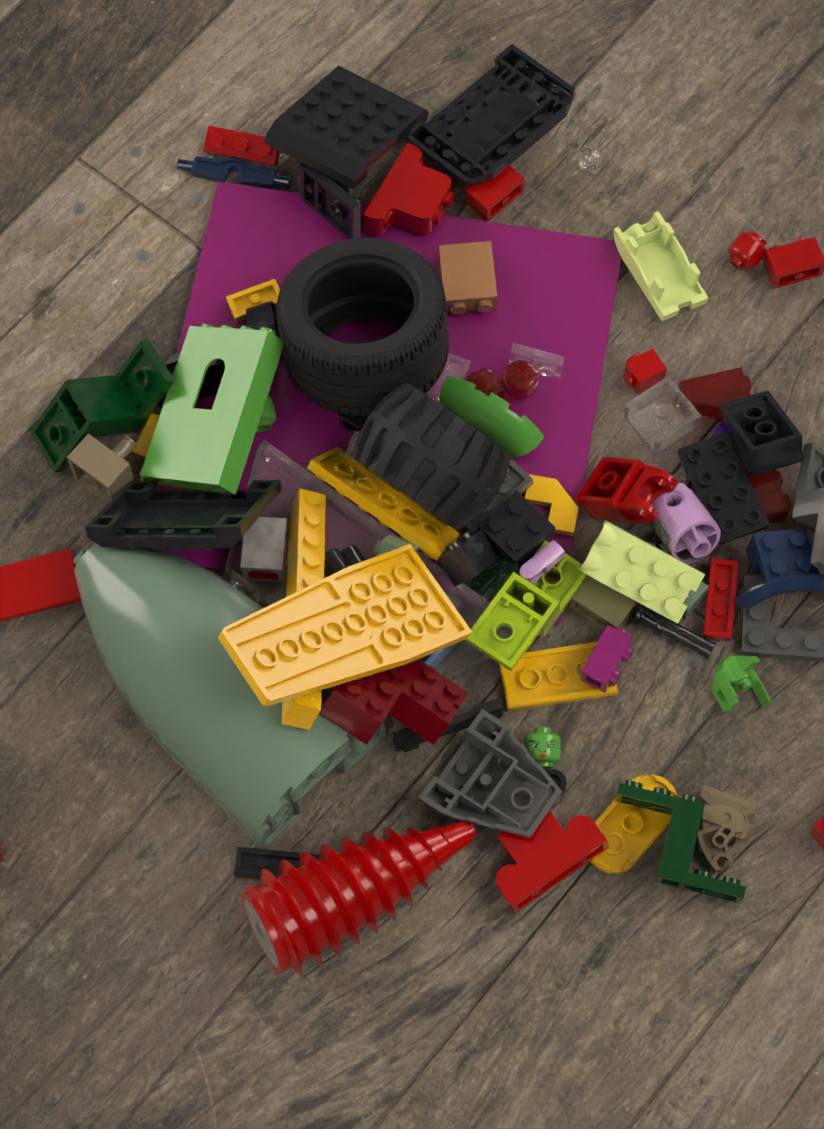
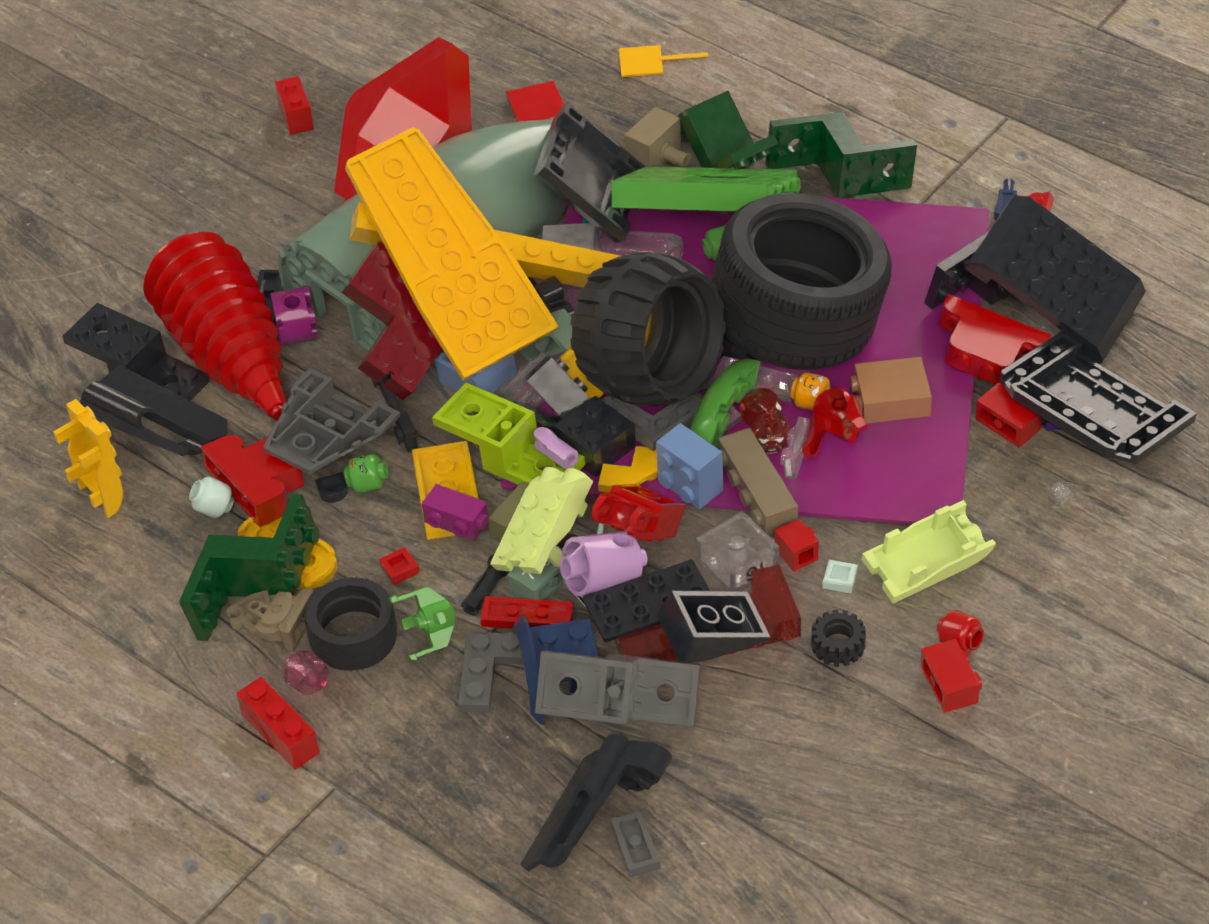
camera: 90 degrees right, 20 degrees down
(69, 716) = (420, 92): none -> red panel
(145, 293) = (841, 155): none -> dark green bracket
(325, 824) = (294, 315): none -> magenta brick
(371, 990) = (135, 348): none -> black bracket
(448, 985) = (126, 397): none -> black panel
(469, 341) = (807, 388): none -> light orange head
(503, 318) = (836, 414): none -> red piece
(551, 1002) = (92, 457): none -> yellow piece
(569, 446) = (689, 466): none -> medium blue brick
(573, 895) = (211, 497): none -> light aqua head
(578, 395) = (757, 481): none -> dark tan brick
(659, 714) = (399, 566): none -> red plate
(675, 342) = (840, 576): none -> light aqua tile
(743, 719) = (345, 597): none -> black tyre
(755, 332) = (838, 651): none -> black tyre
(793, 791) = (305, 672): none -> clear pink head

